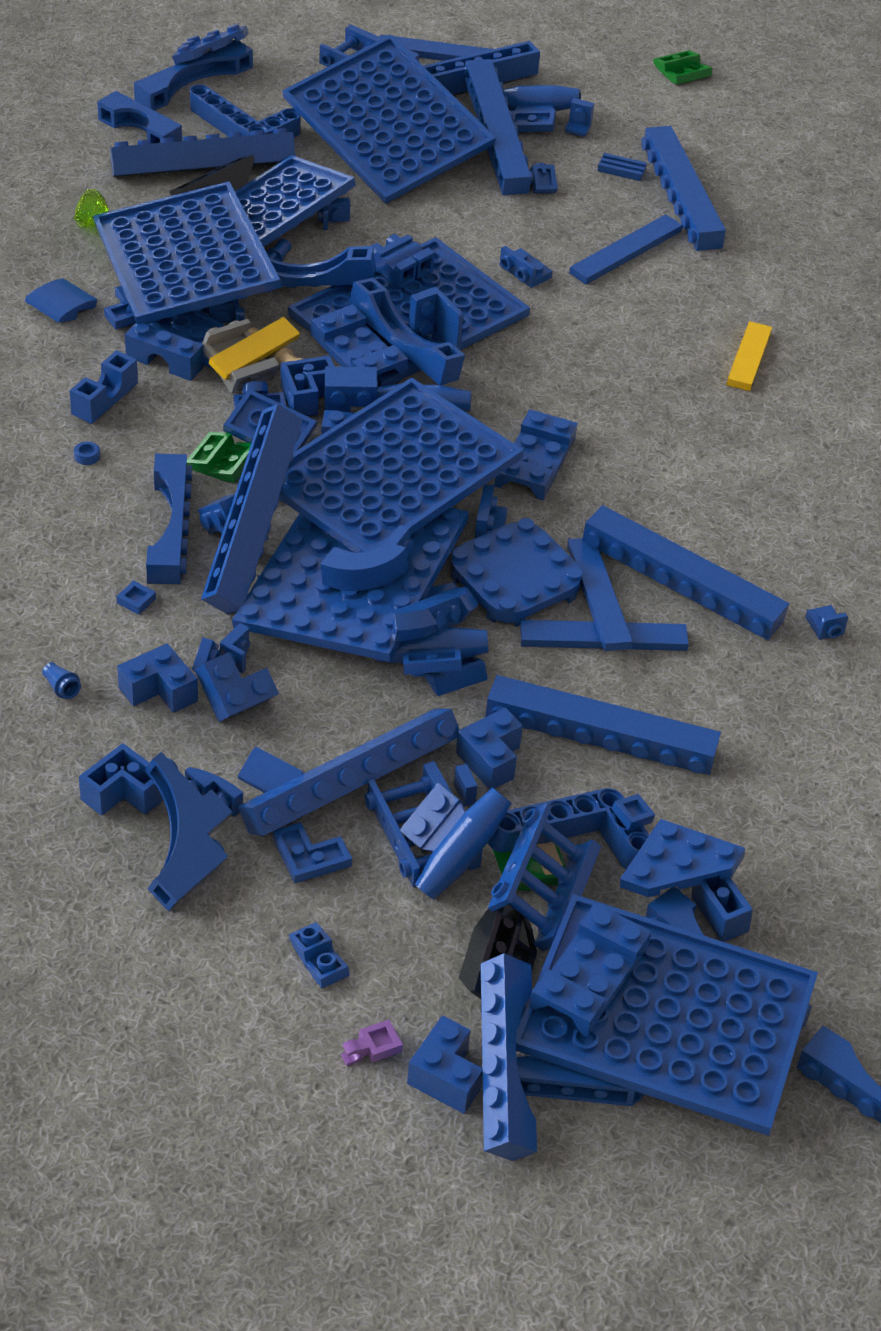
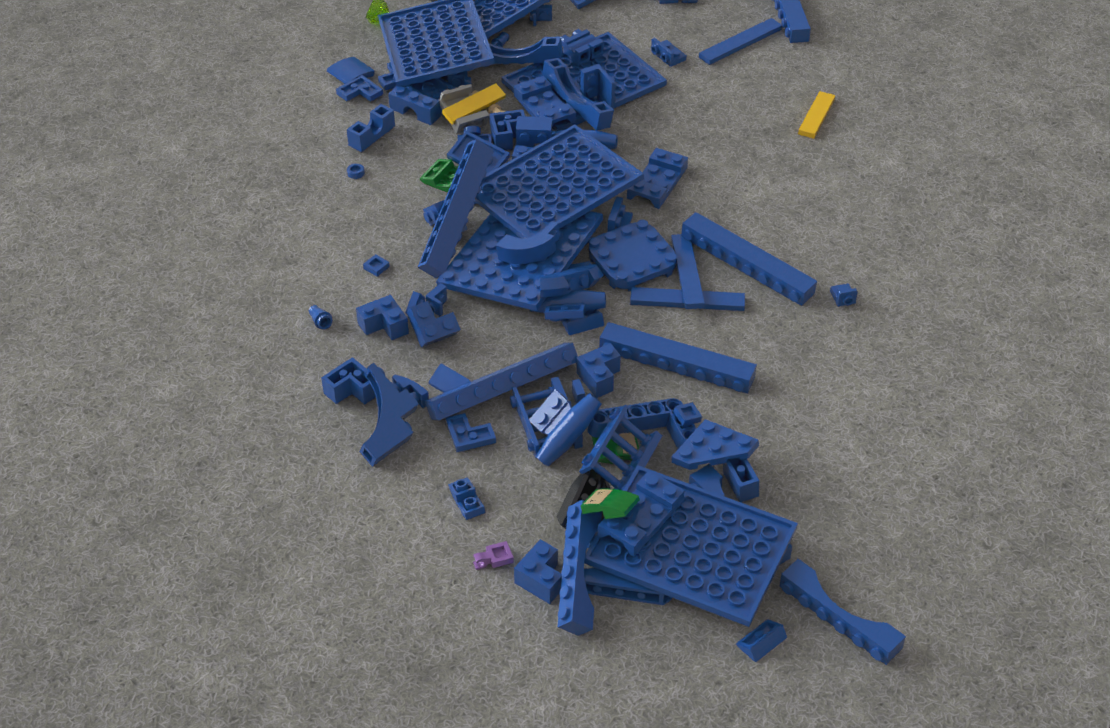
camera: 10 degrees right, 0 degrees up
(78, 323) = (359, 86): none -> blue plate
(165, 557) = (398, 240): blue arch -> none
(550, 954) = (612, 502): none -> green slope
(785, 1151) = (762, 639): none -> blue slope

